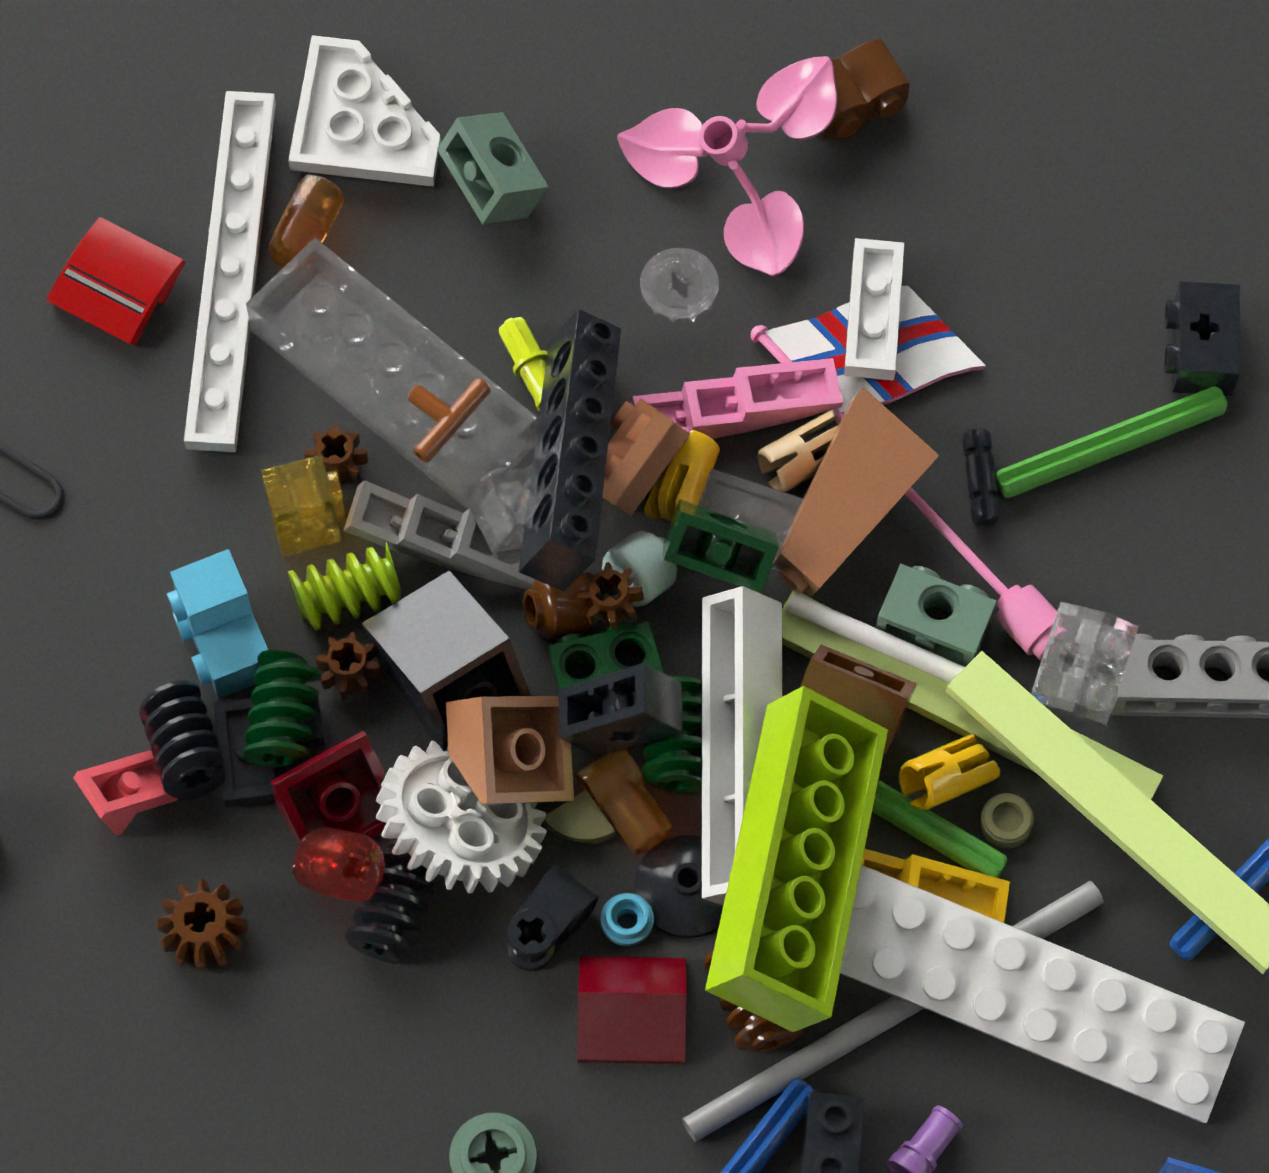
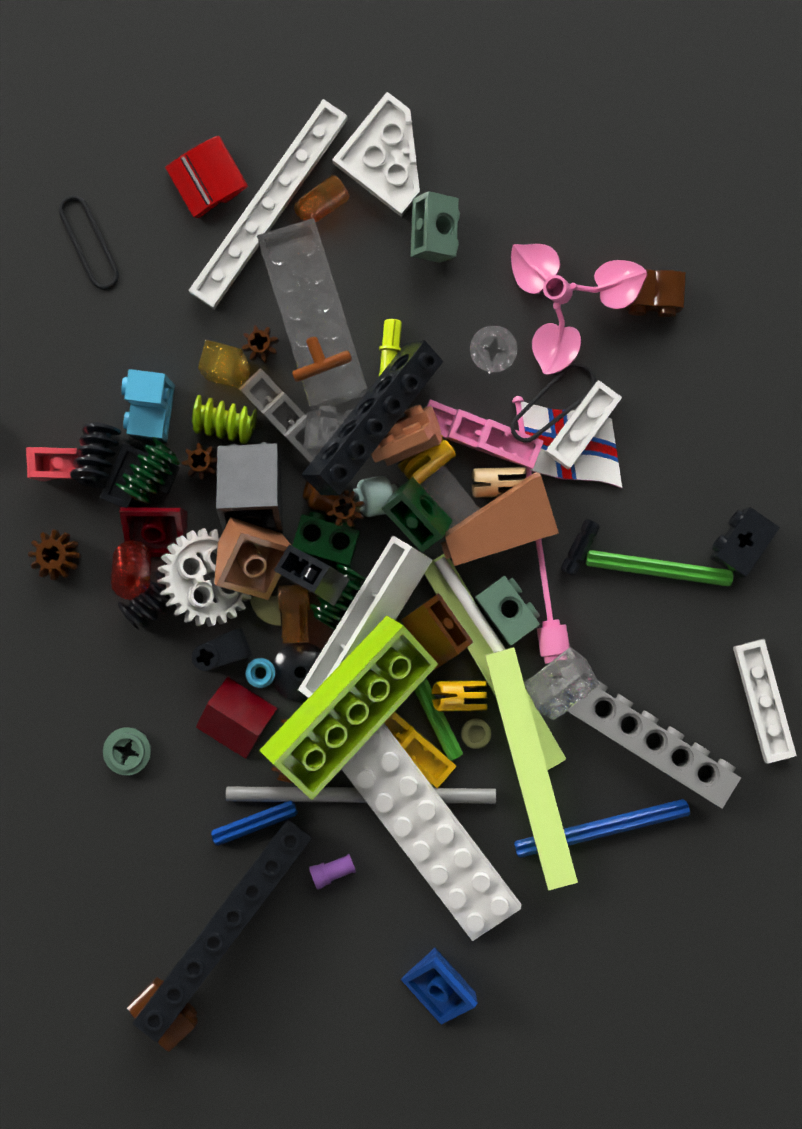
camera: 35 degrees right, 20 degrees up
(787, 302) = (560, 416): none -> black piece

